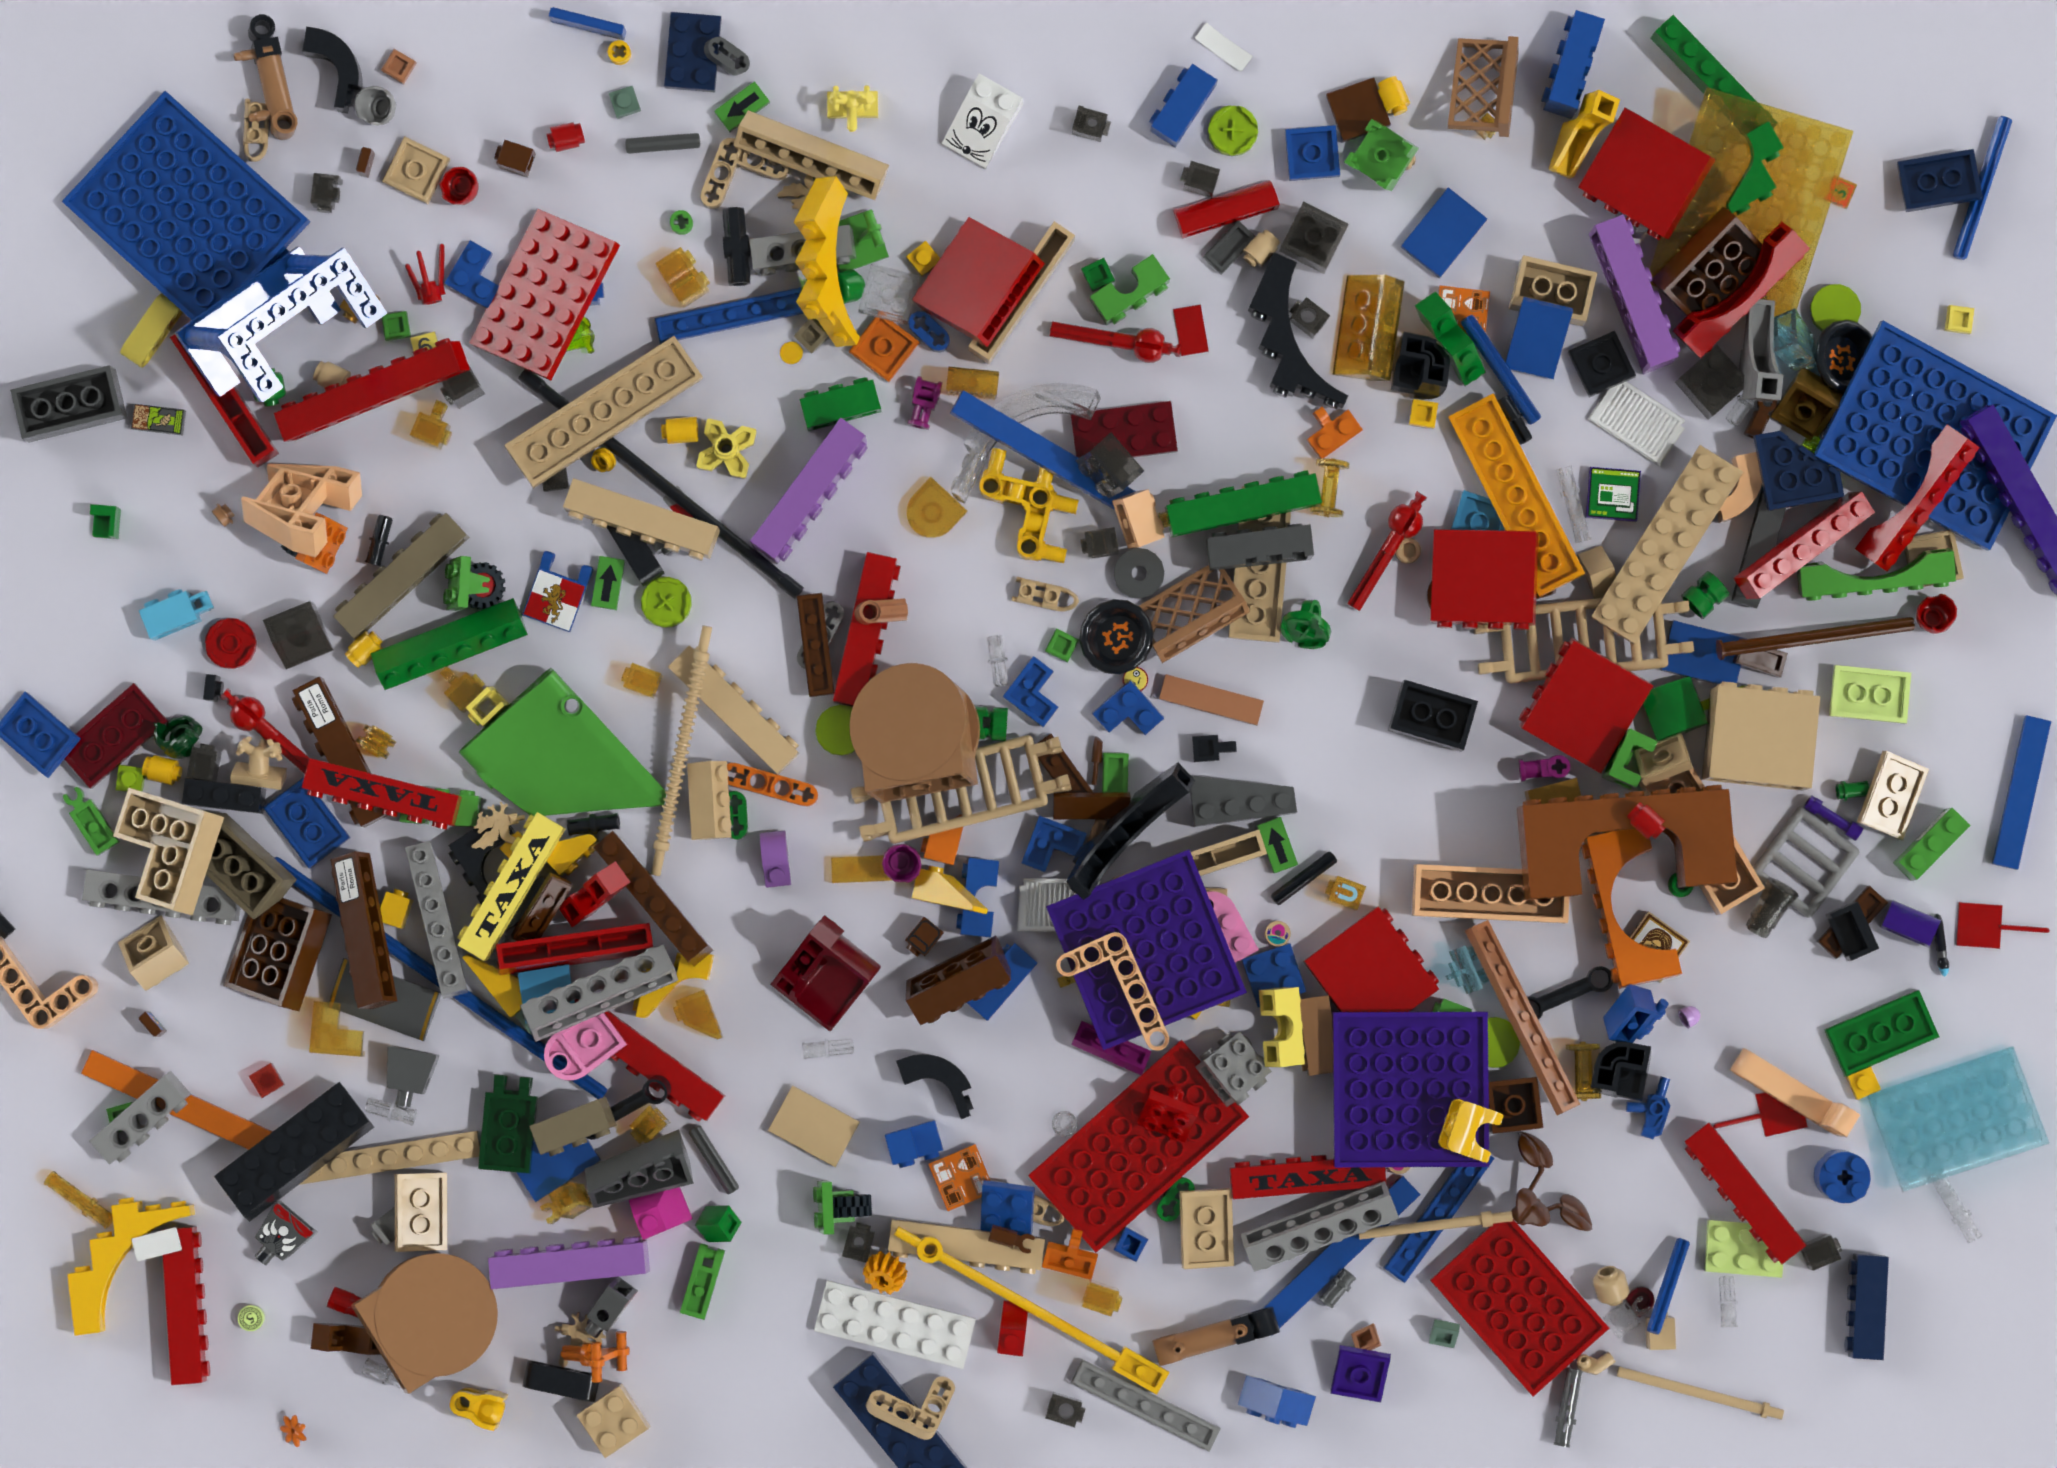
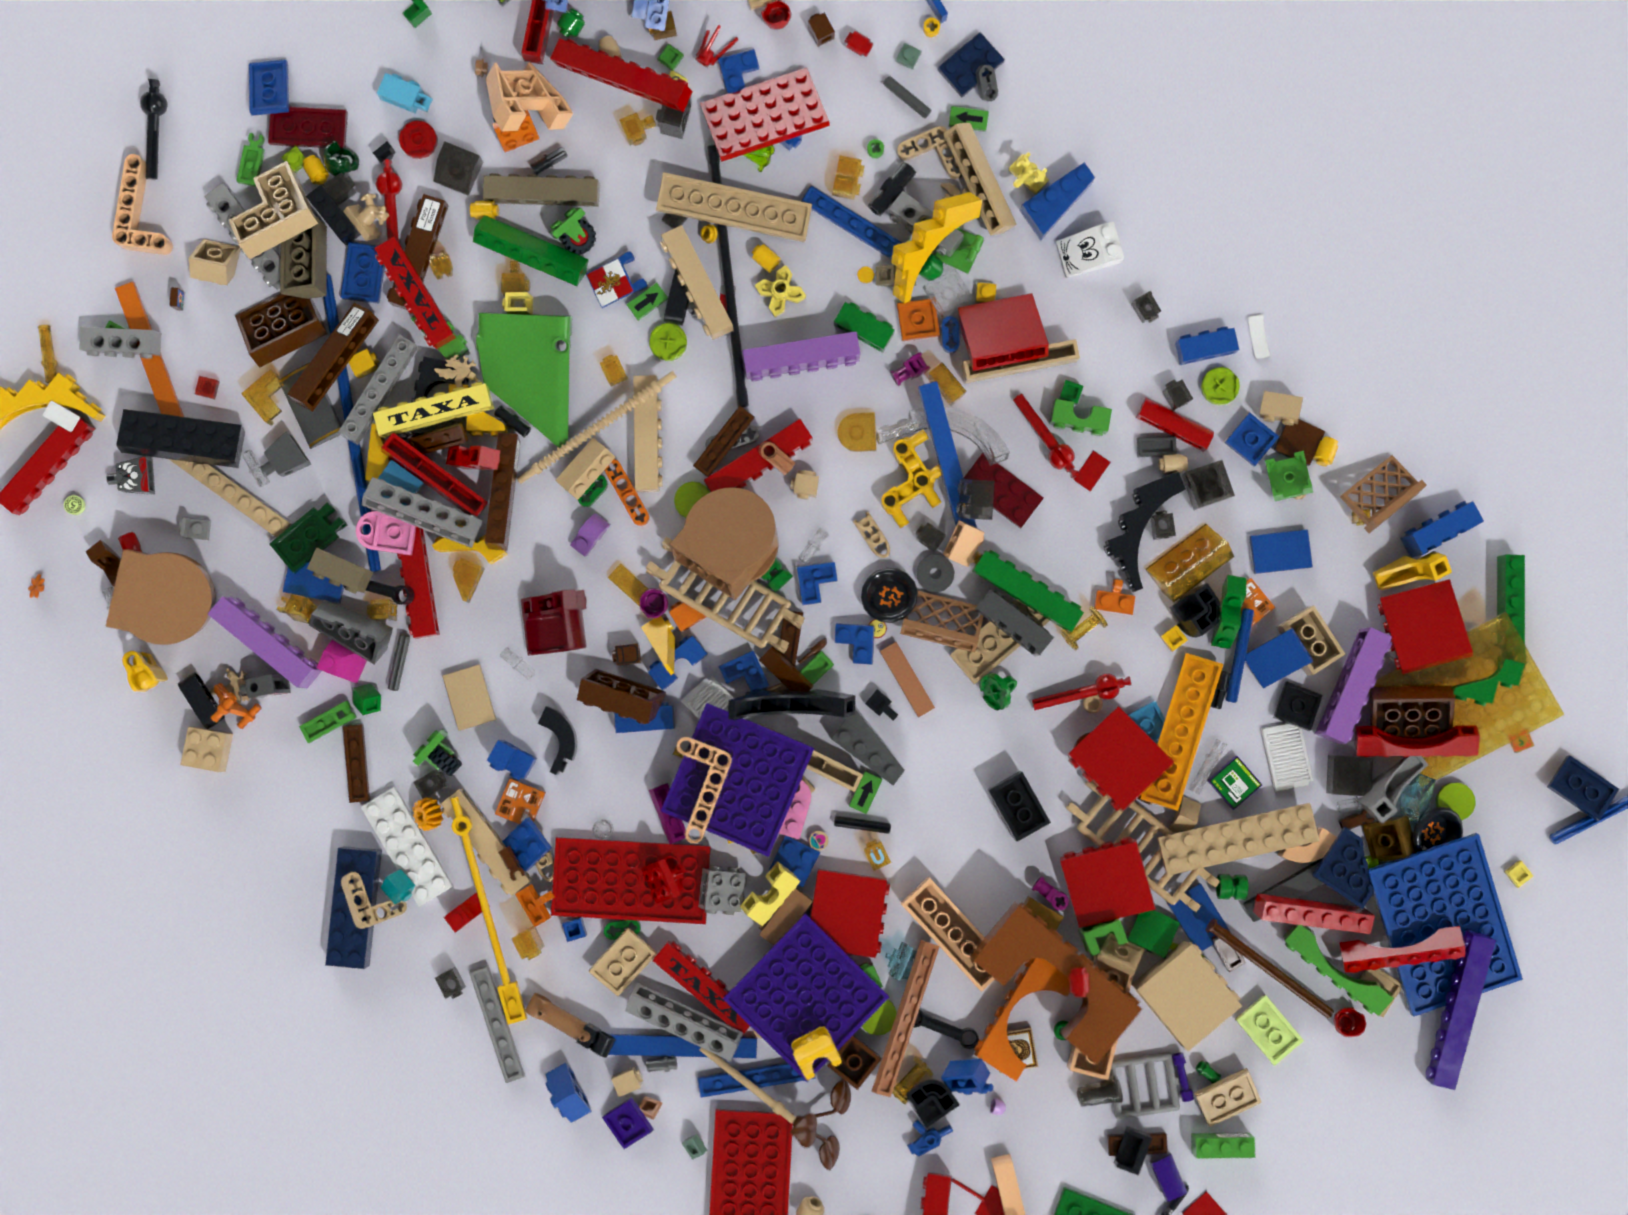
camera: 45 degrees right, 0 degrees up
(420, 1211) = (216, 537): tan plate -> none
(768, 1294) = (356, 763): none -> reddish brown tile
(903, 108) = (1053, 202): none -> blue wedge
(925, 1368) = (398, 887): none -> teal brick
(932, 610) = (805, 484): none -> tan brick
(1061, 645) = (855, 571): bright green tile -> none
(1310, 97) = (1281, 408): none -> tan brick
(1321, 1335) = (627, 1081): none -> tan brick
(2021, 792) = (1300, 1165): blue tile -> none

